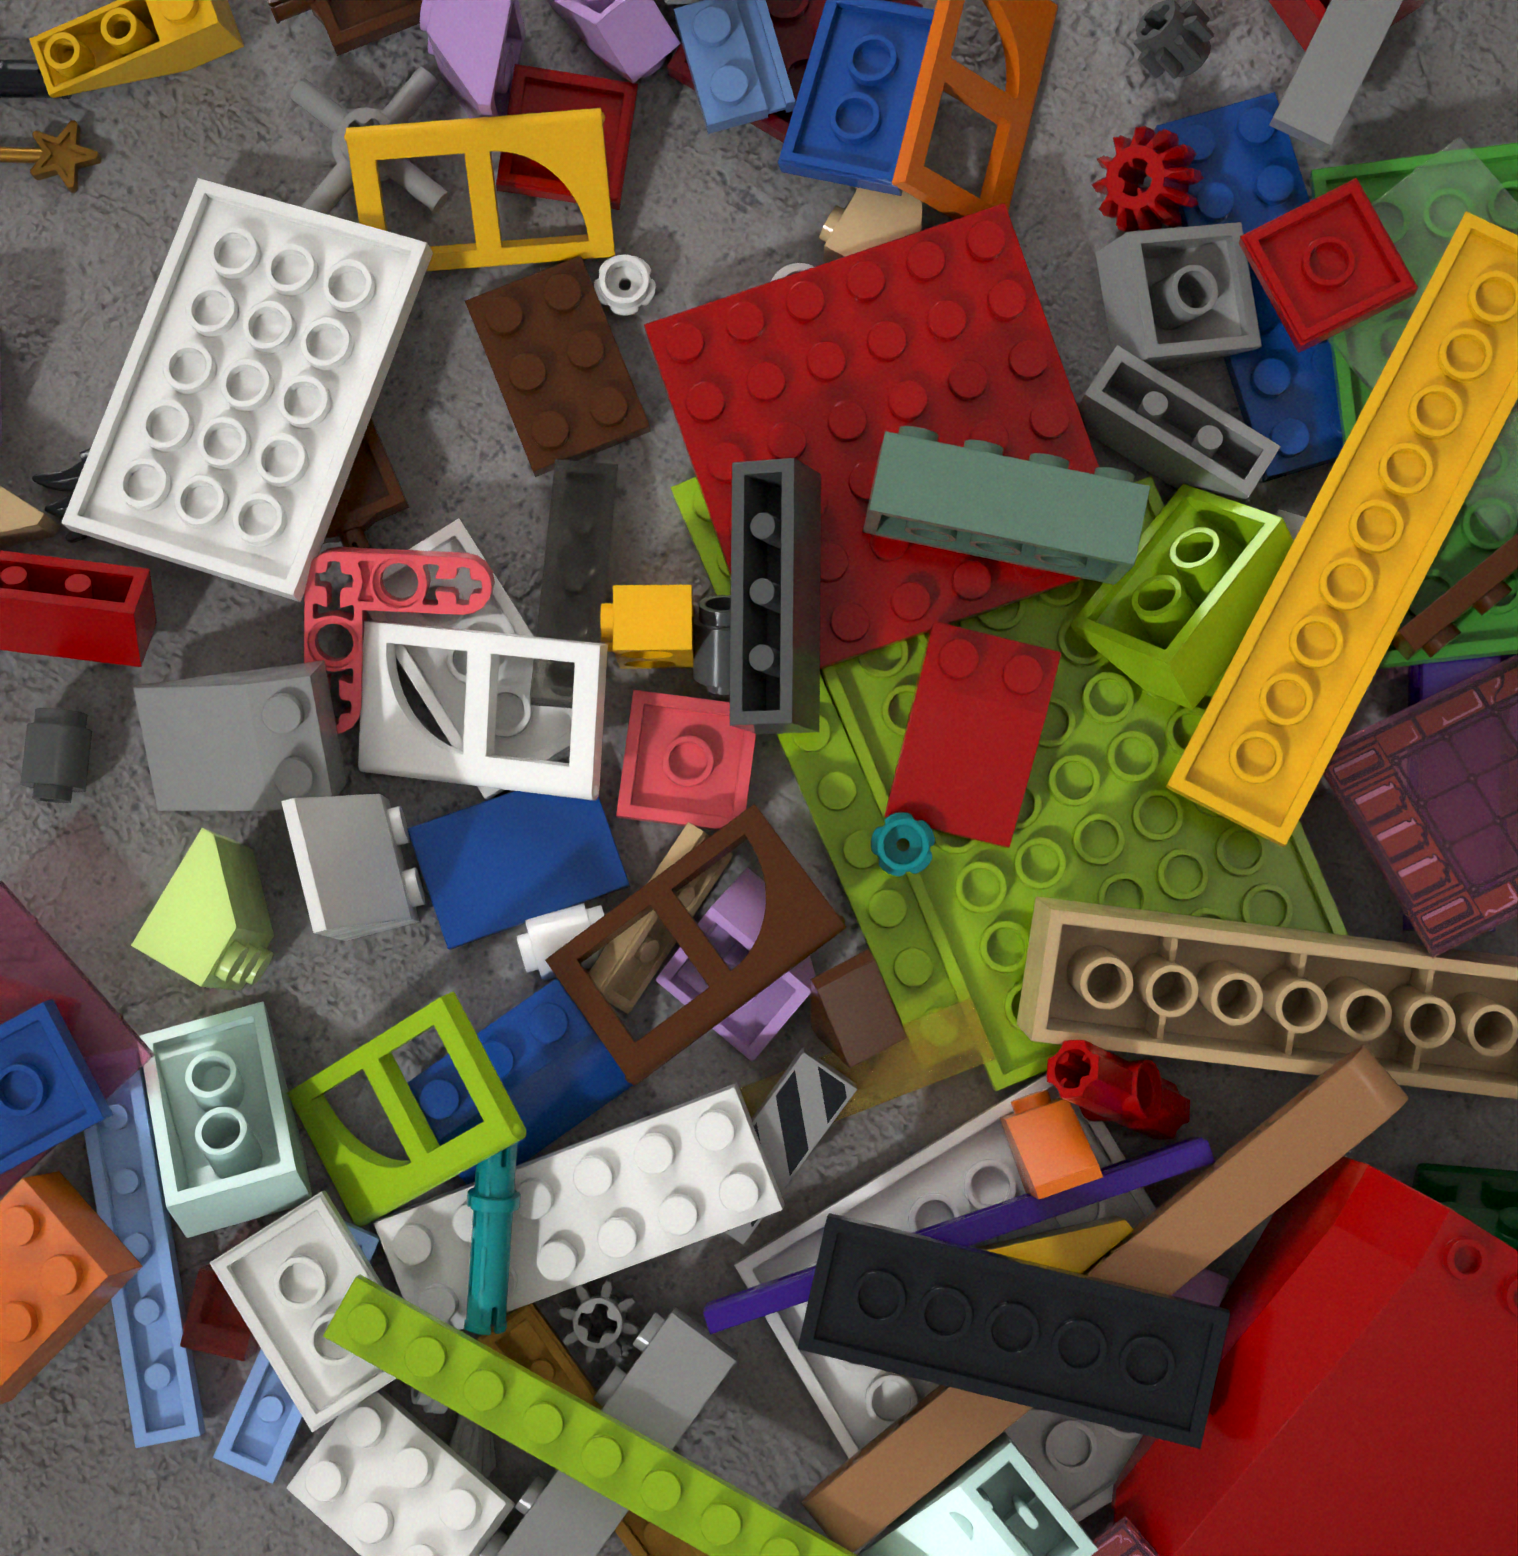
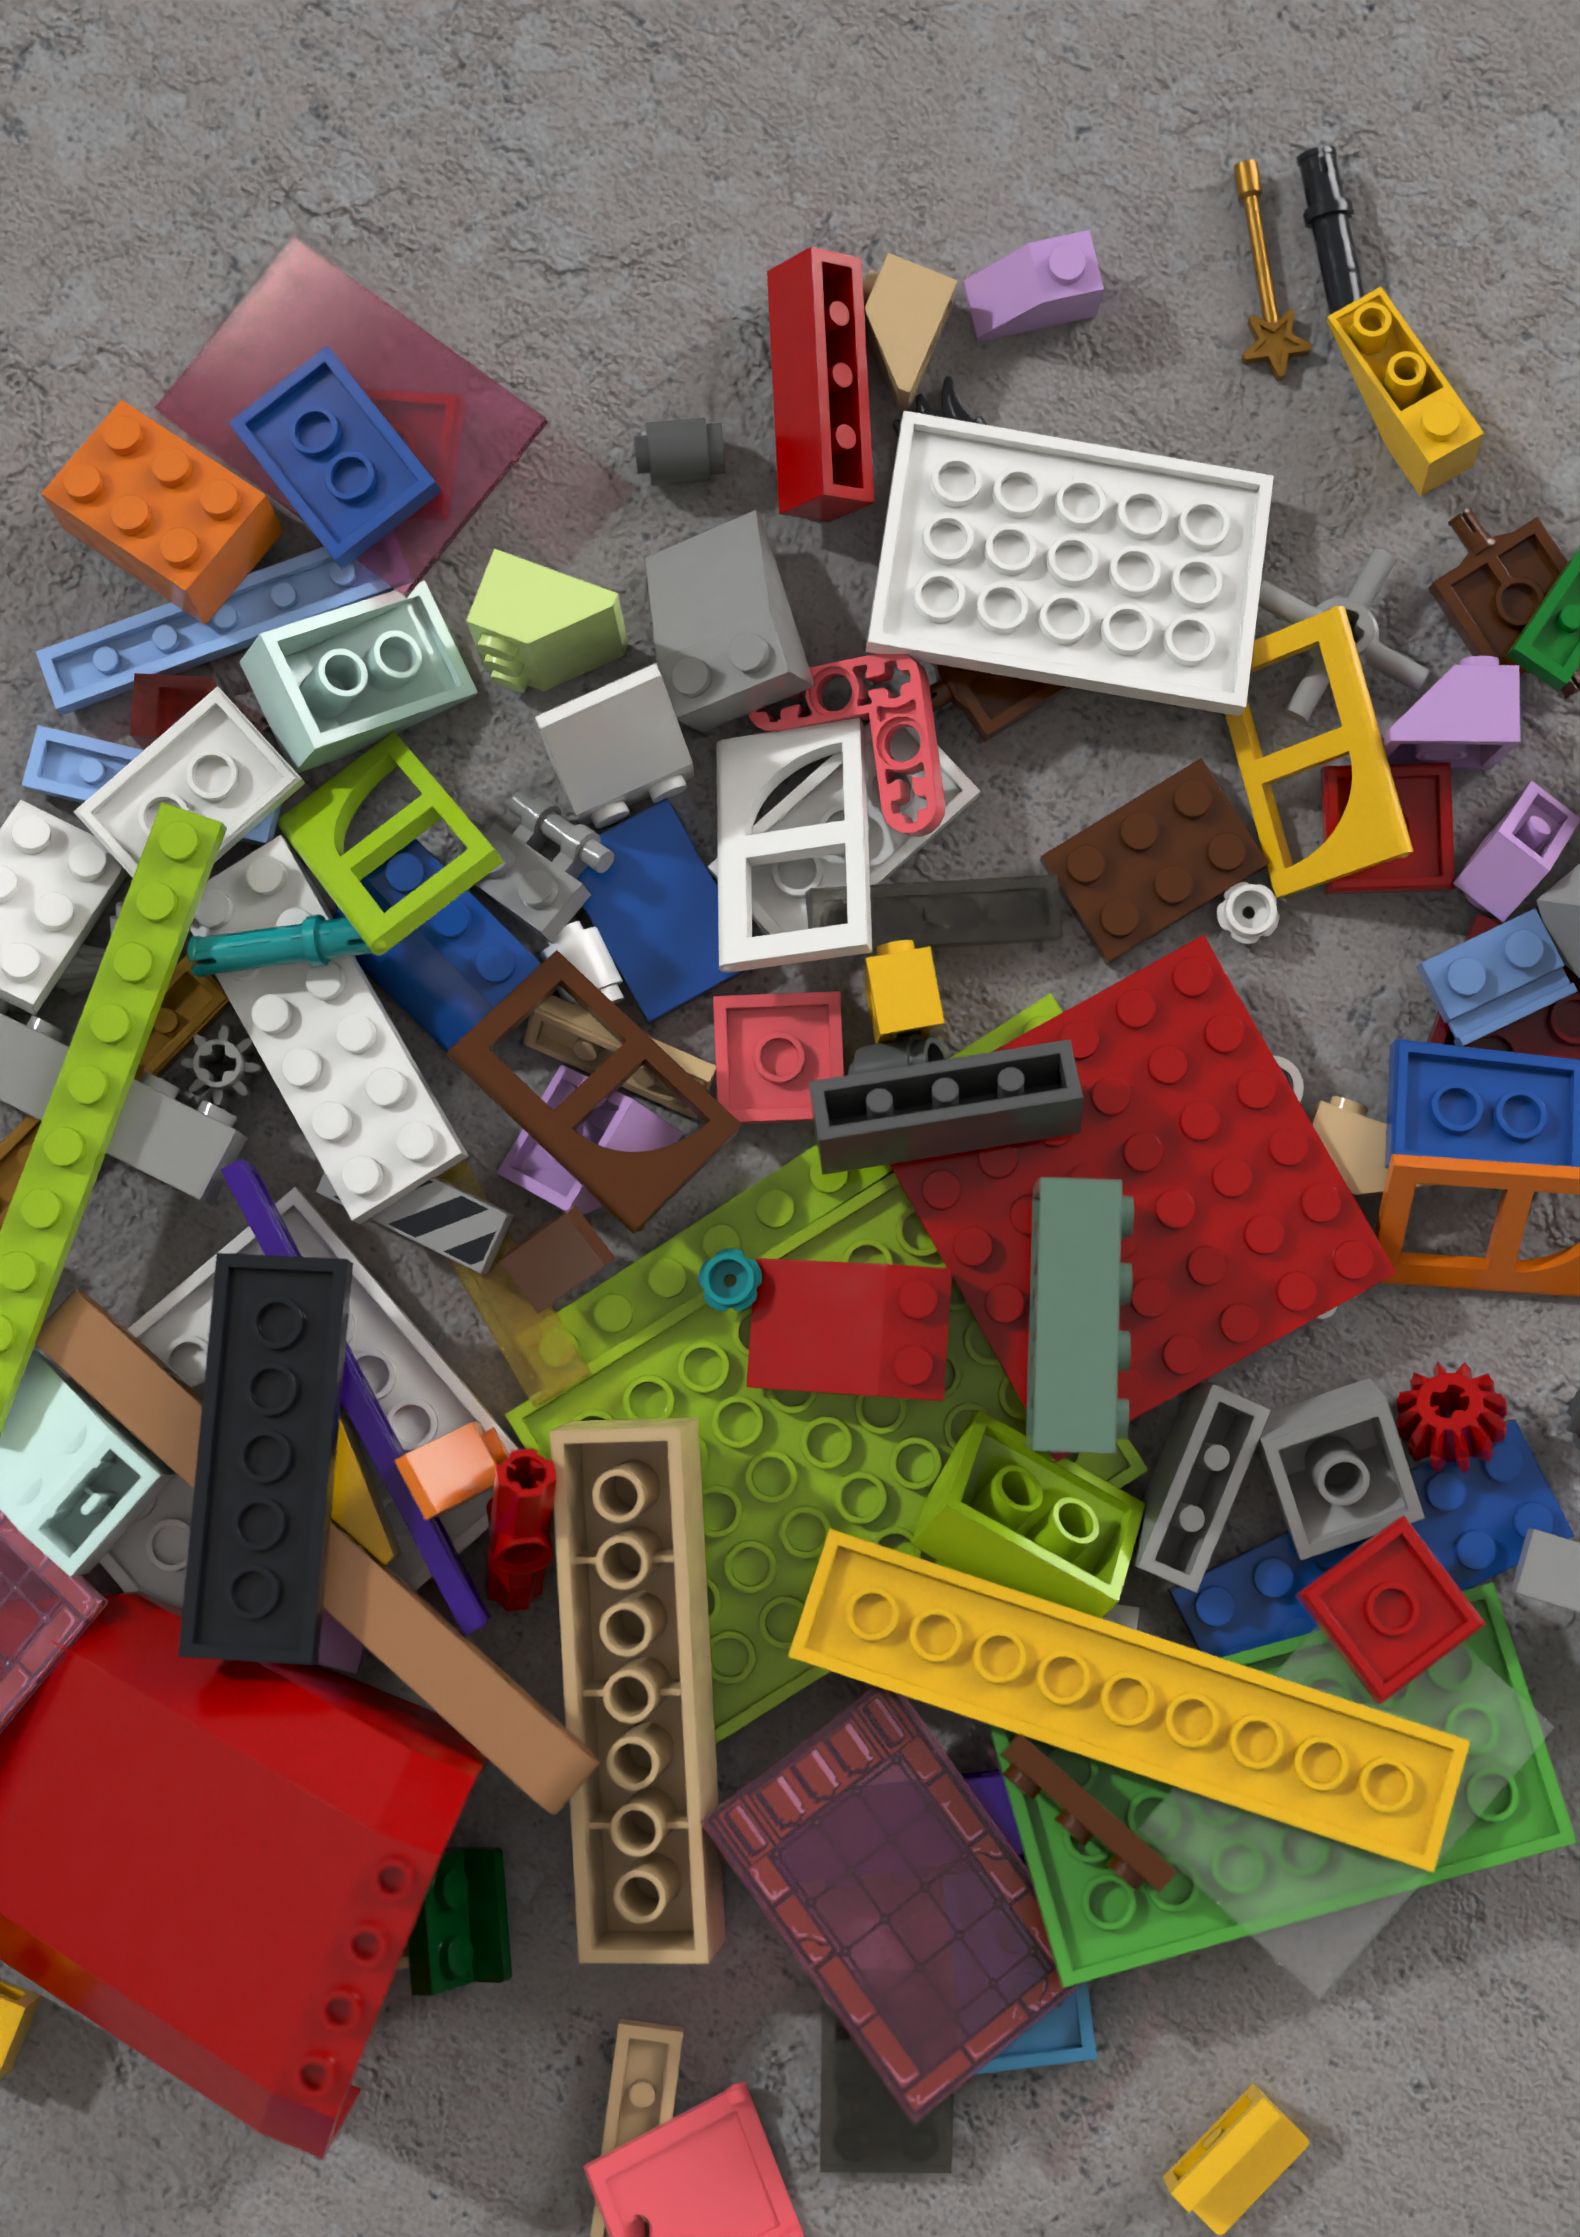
camera: 80 degrees right, 0 degrees up
(479, 970) = (528, 884): none -> light grey plate

